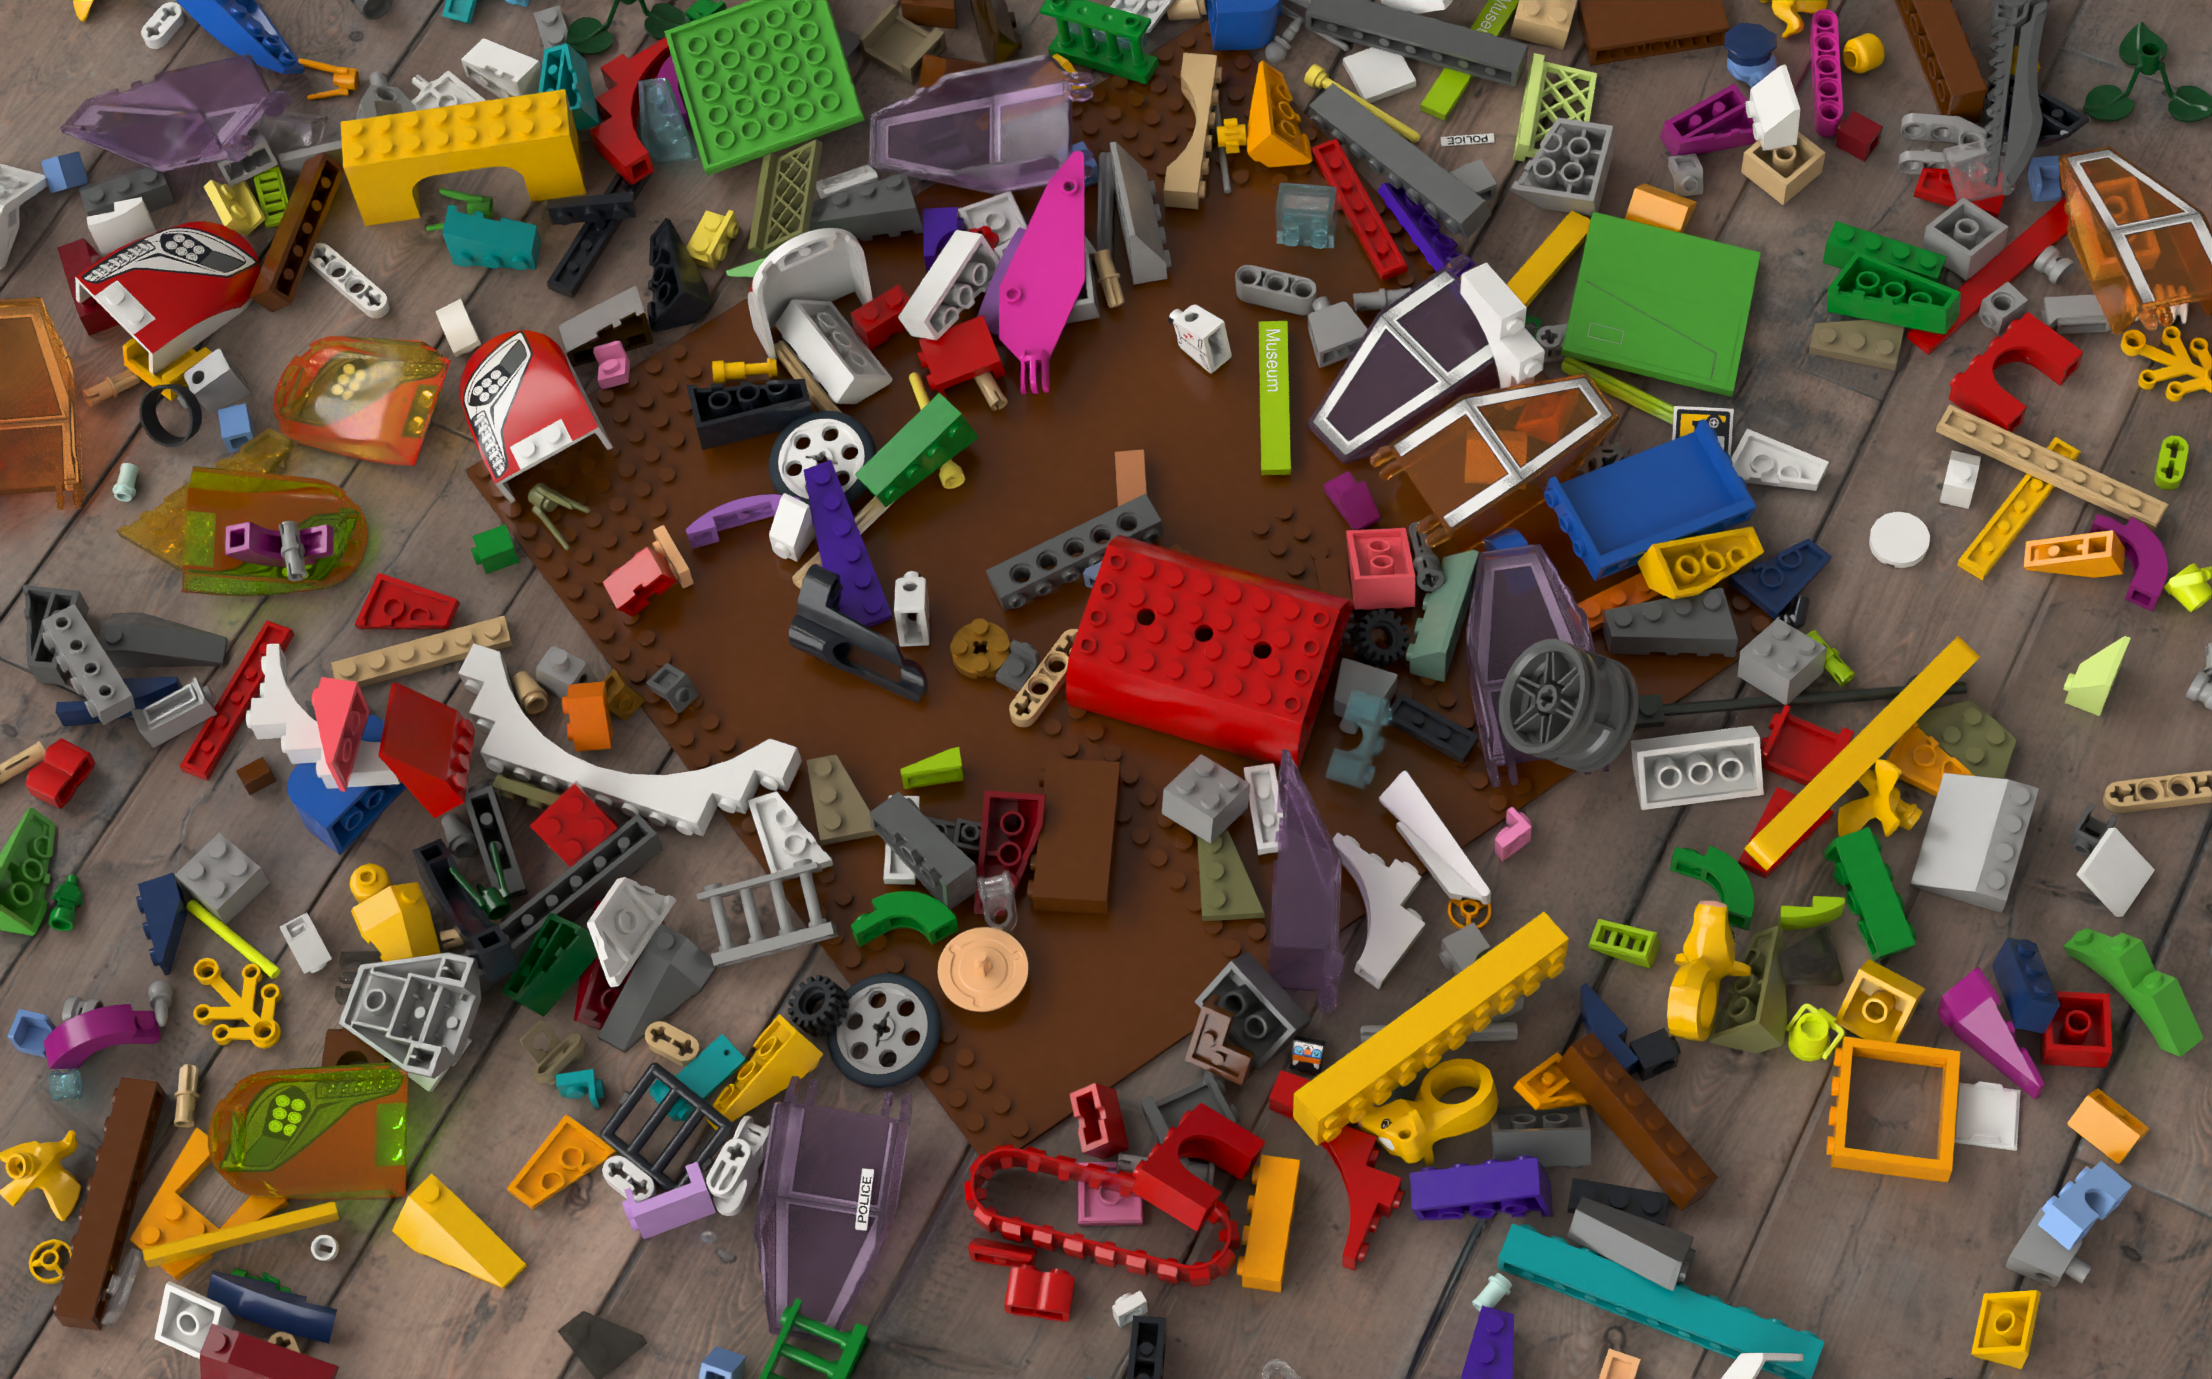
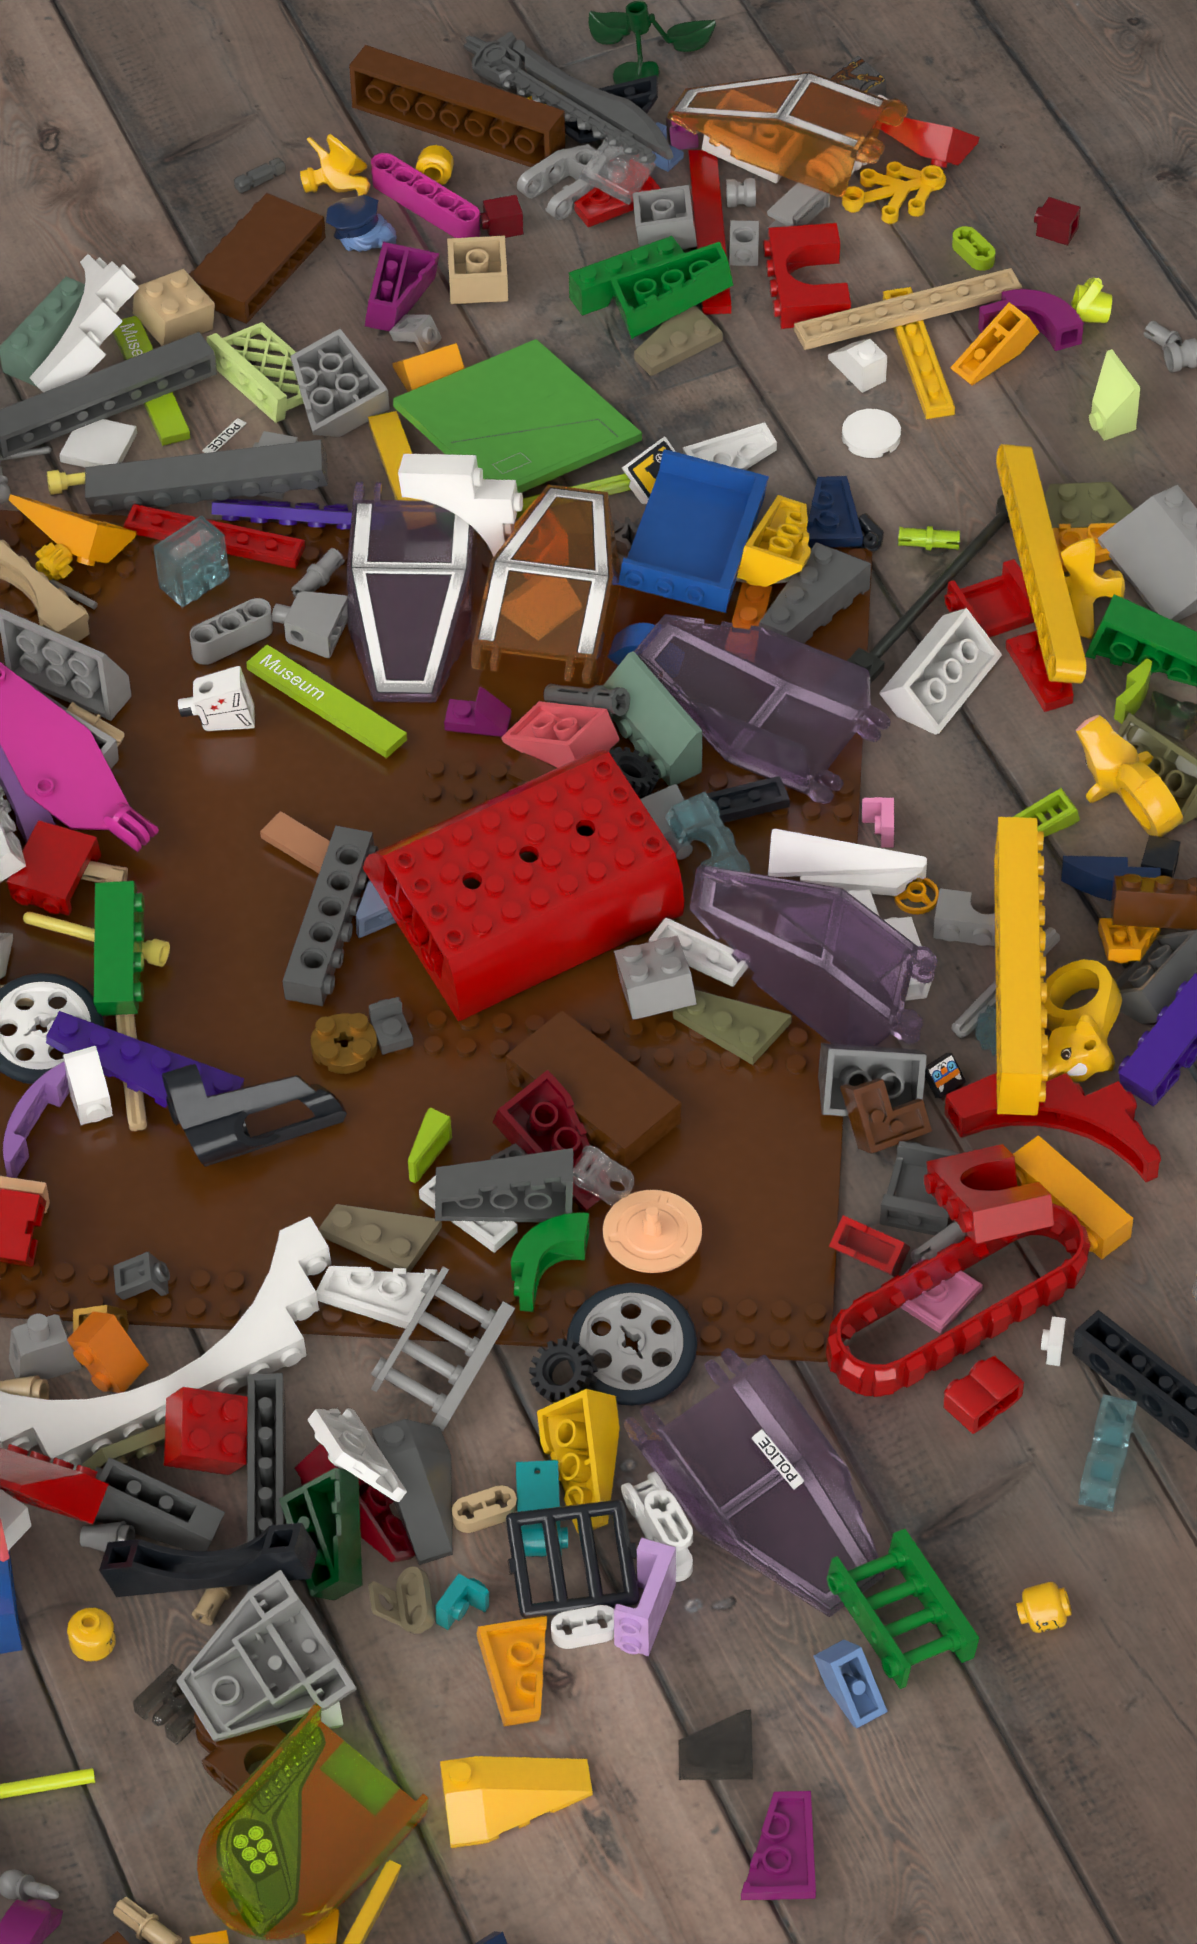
camera: 55 degrees left, 10 degrees down
(240, 1008) = (98, 1826): yellow plant -> none
(306, 944) = (91, 1725): white slope -> none
(327, 1241) = (414, 1900): white hinge -> none
(398, 923) = (157, 1631): yellow wedge -> none
(491, 900) = (214, 1538): dark green plant -> none
(912, 597) = (259, 1053): white torso -> none
(1001, 1253) = (919, 1399): red slope -> none
(1043, 675) = (423, 1014): tan beam -> none
(1568, 705) = (803, 651): dark grey wheel -> none
(1723, 876) = (1046, 720): green arch -> none
(1774, 110) = (444, 226): white slope -> none
(1781, 661) = (909, 559): light grey brick -> none

